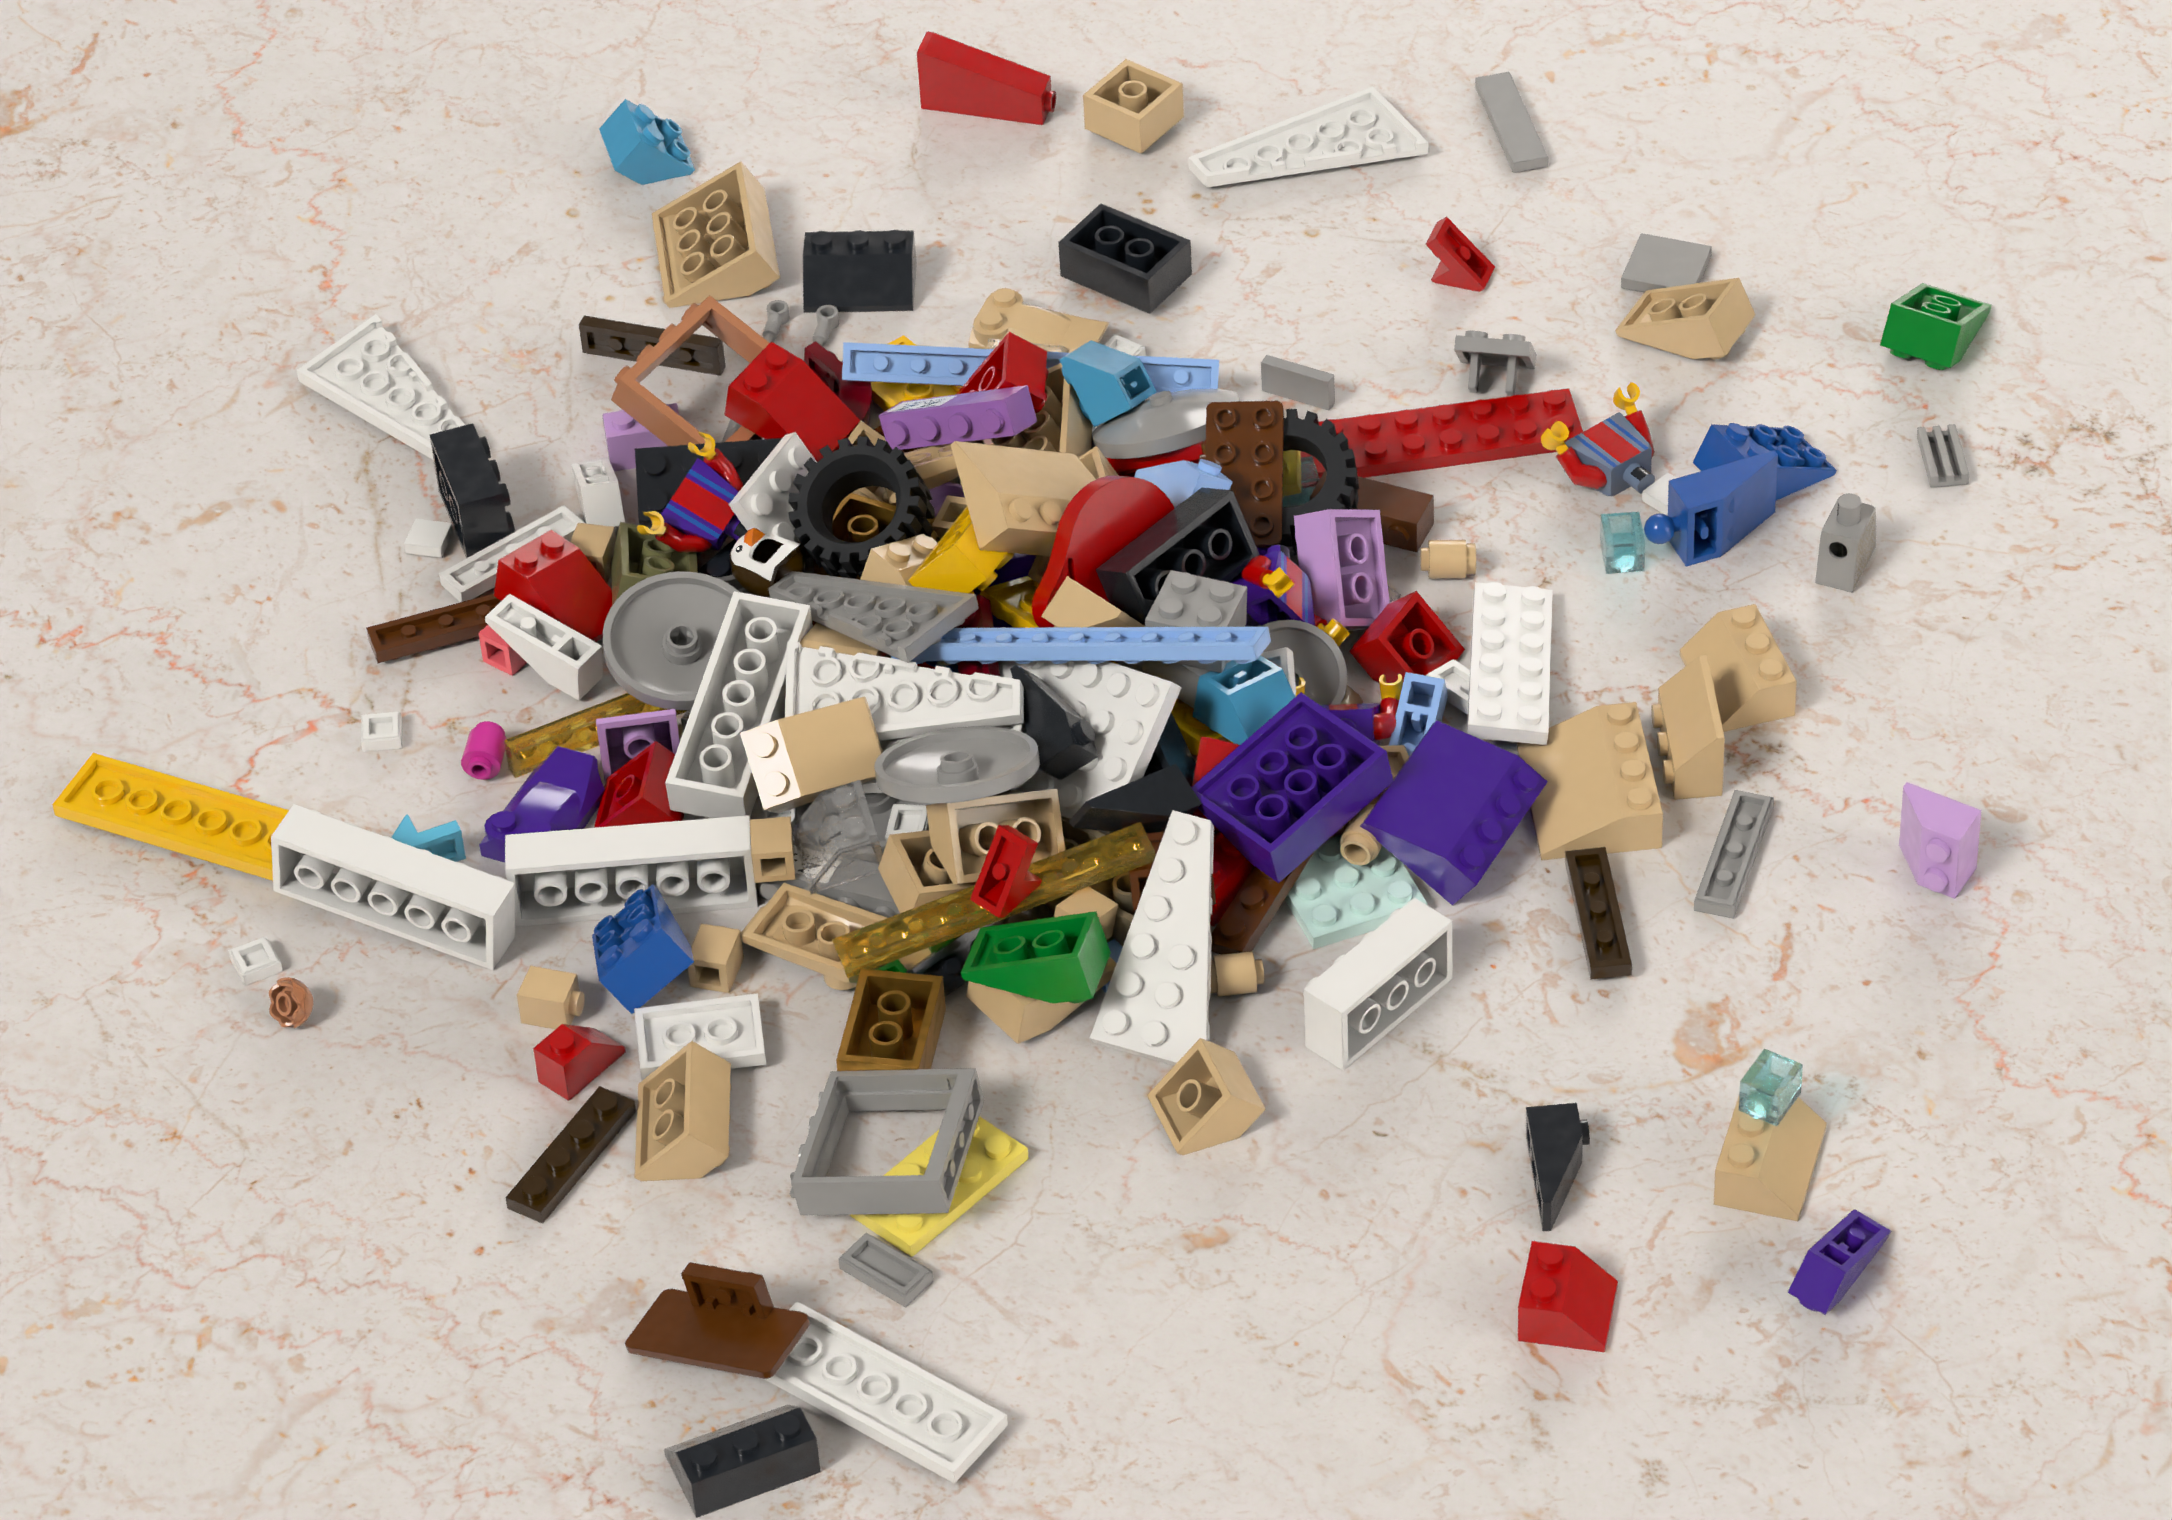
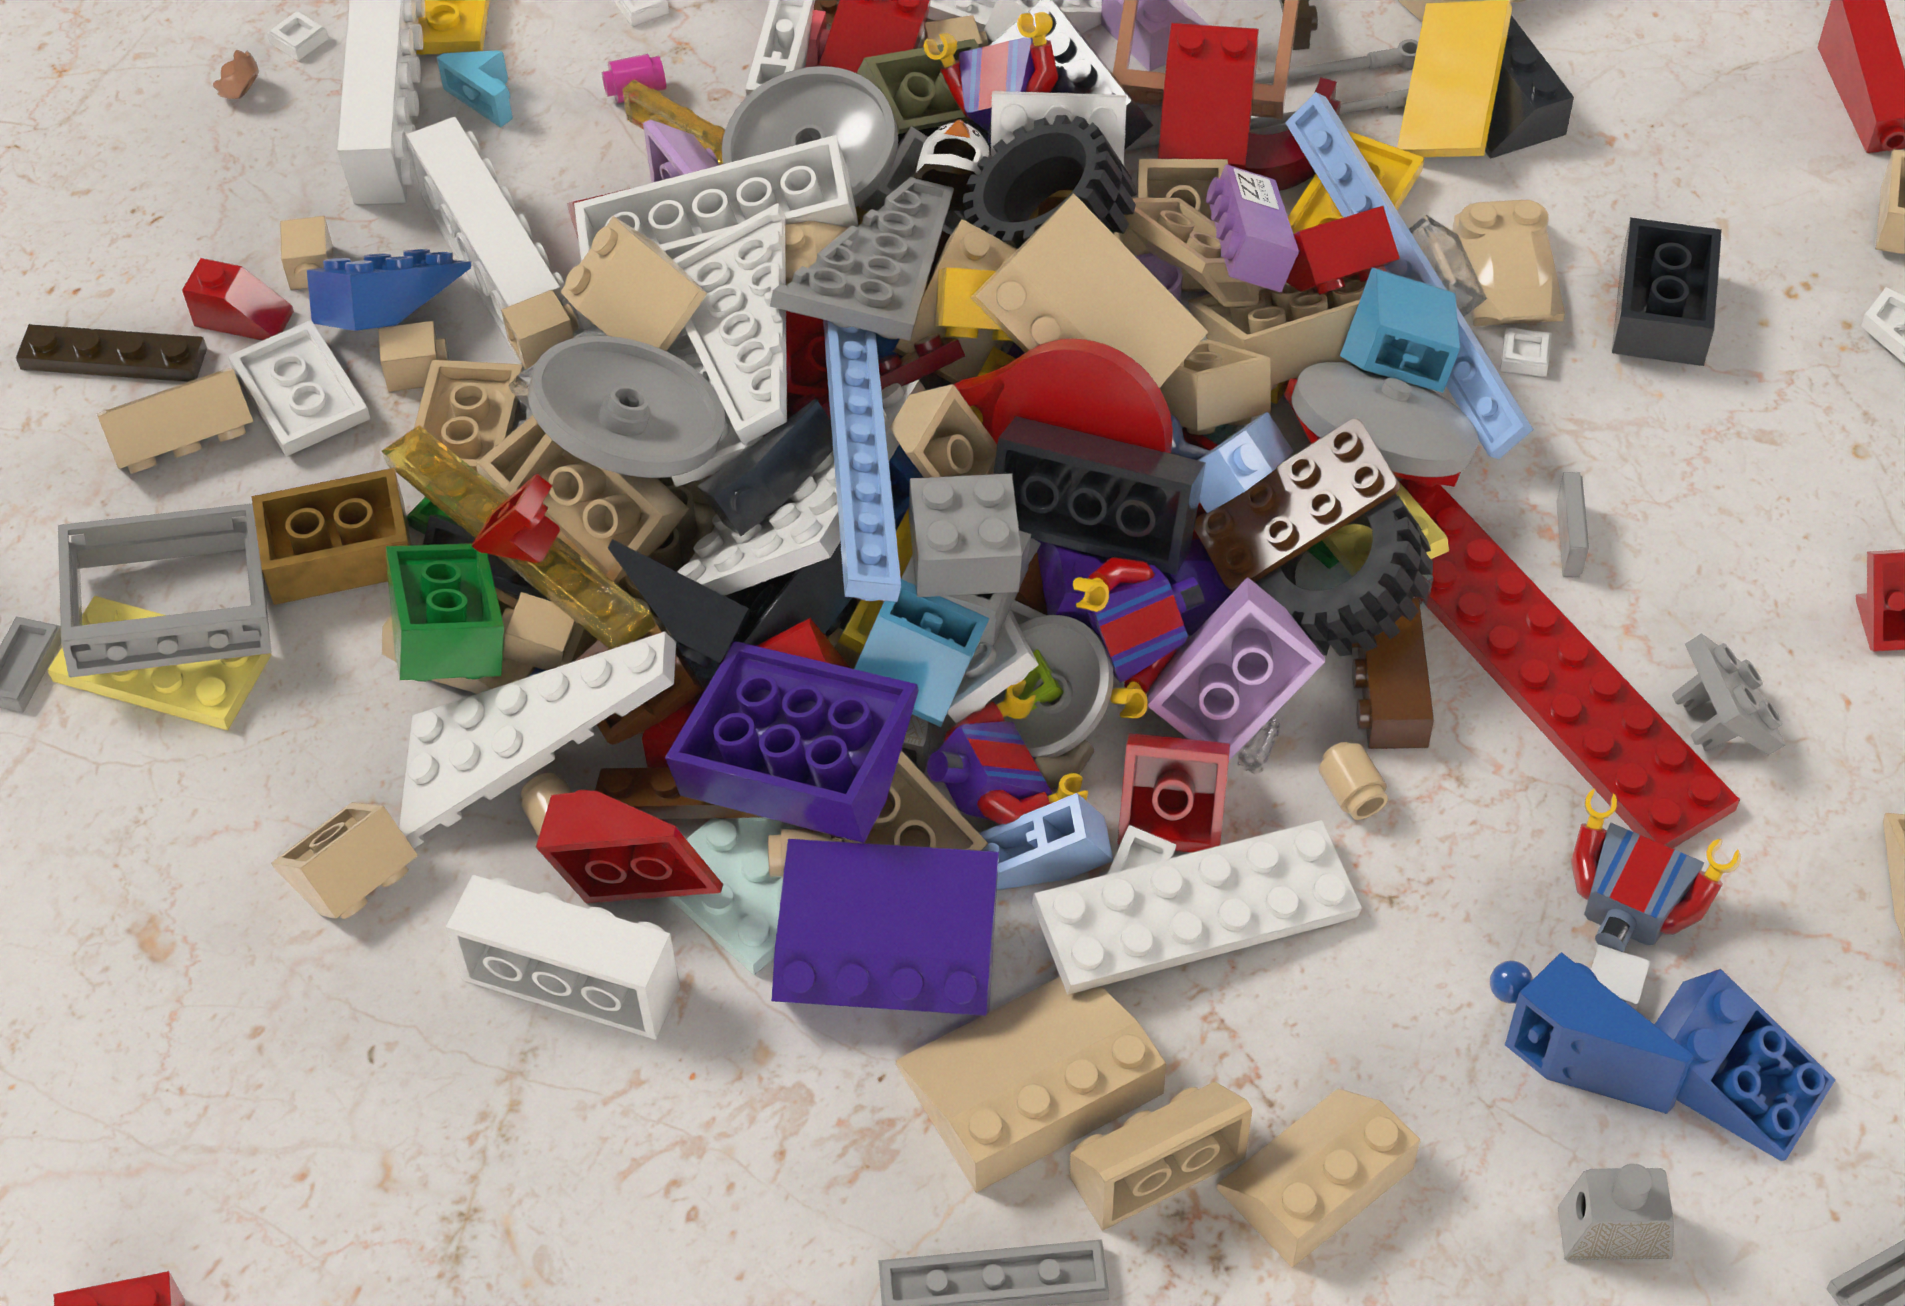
camera: 65 degrees right, 10 degrees up
(553, 798) = (568, 157): dark purple slope -> none
(845, 285) = (1455, 78): none -> yellow tile
(1313, 917) = (619, 851): none -> red slope
(1555, 1154) = (359, 1253): black slope -> none
(1598, 913) = (808, 1156): dark brown plate -> none
(1622, 542) = (1478, 948): clear light blue brick -> none

